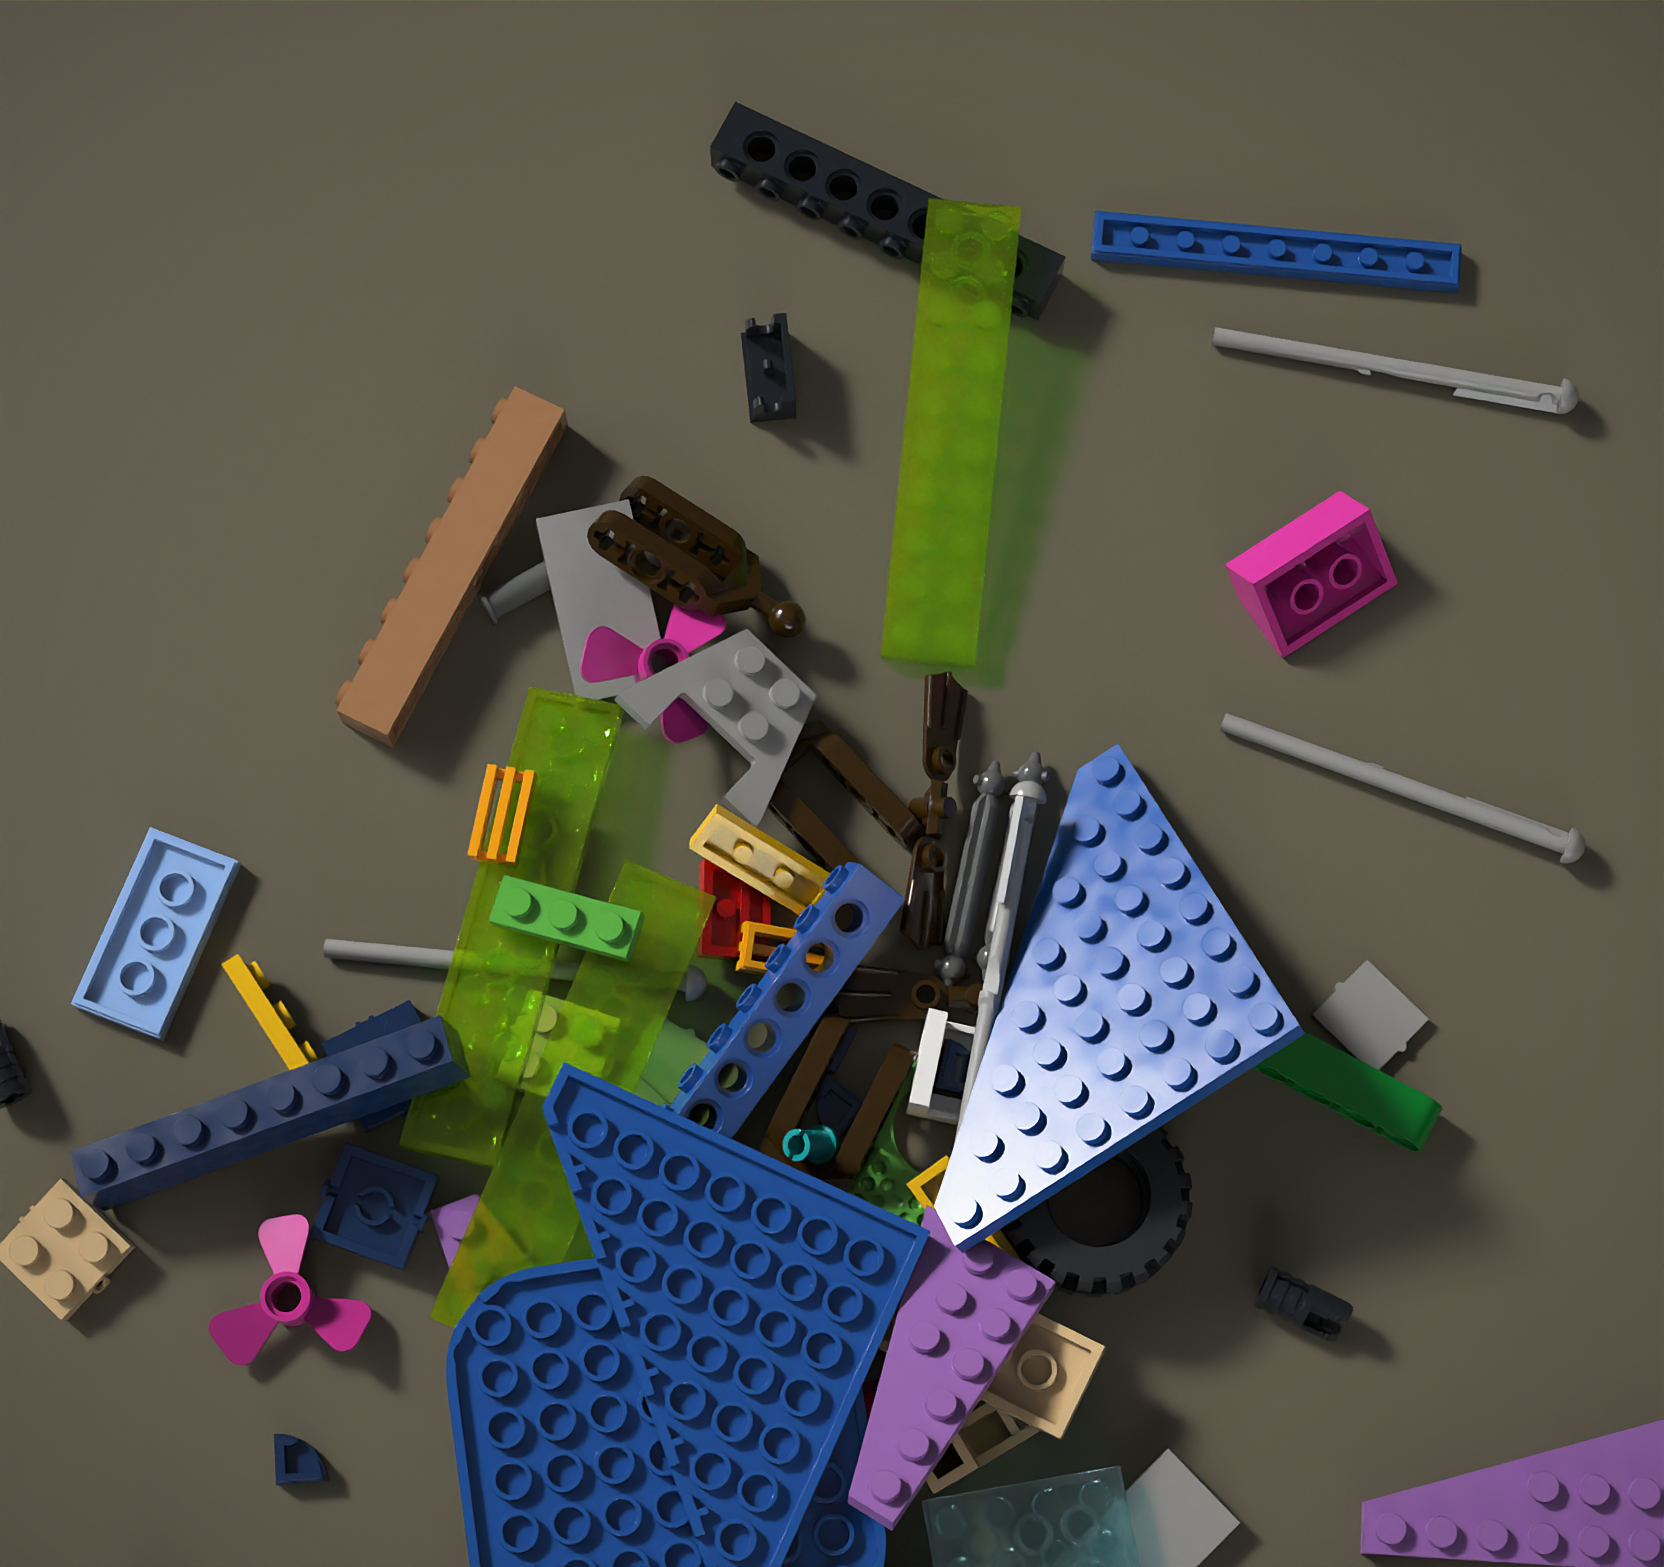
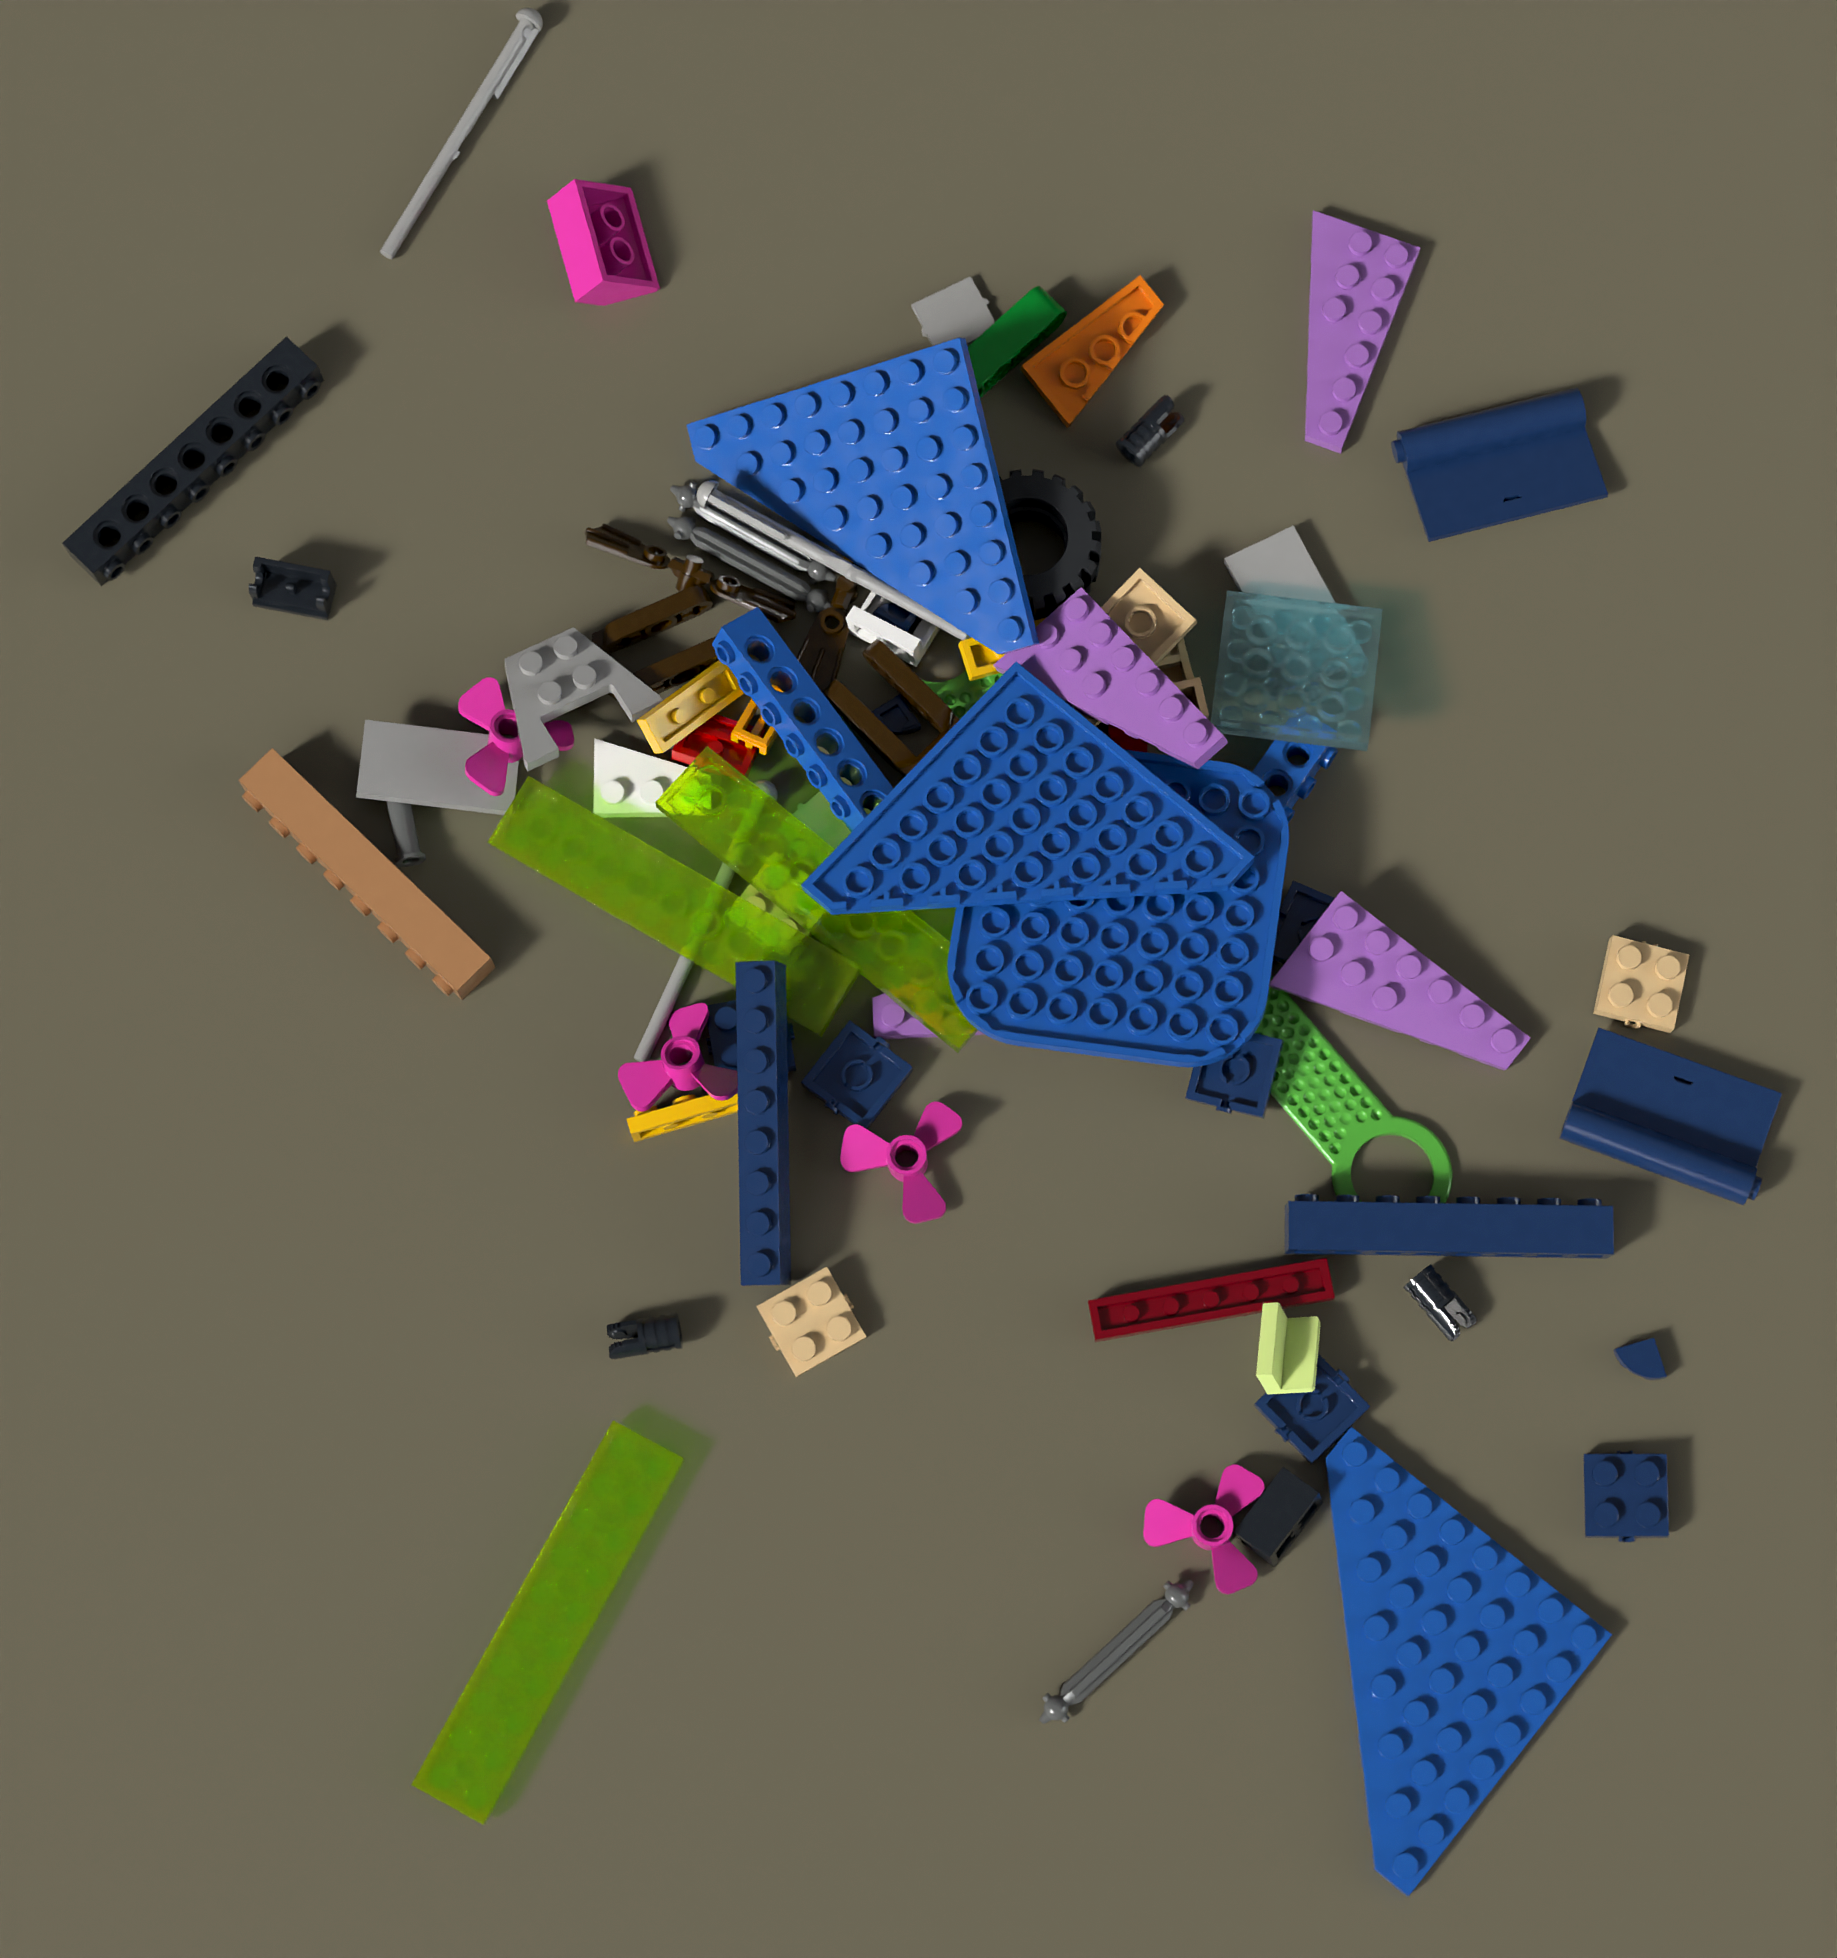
camera: 65 degrees left, 0 degrees up
(156, 934) = (584, 1187): light blue tile -> none
(291, 963) = (648, 1080): none -> dark pink piece
(297, 1462) = (1031, 1190): dark blue tile -> none
(509, 777) = (557, 872): light orange tile -> none
(567, 918) = (687, 858): bright green plate -> none
(658, 822) = (629, 781): none -> white wing
(688, 556) = (451, 665): dark brown piece -> none
(816, 1144) = (920, 727): teal pin -> none
(951, 433) = (396, 465): clear neon green plate -> none
(1276, 251) = (334, 188): blue tile -> none
(1375, 1193) = (1086, 354): none -> orange wing
(1570, 844) = (874, 134): light grey bar -> none

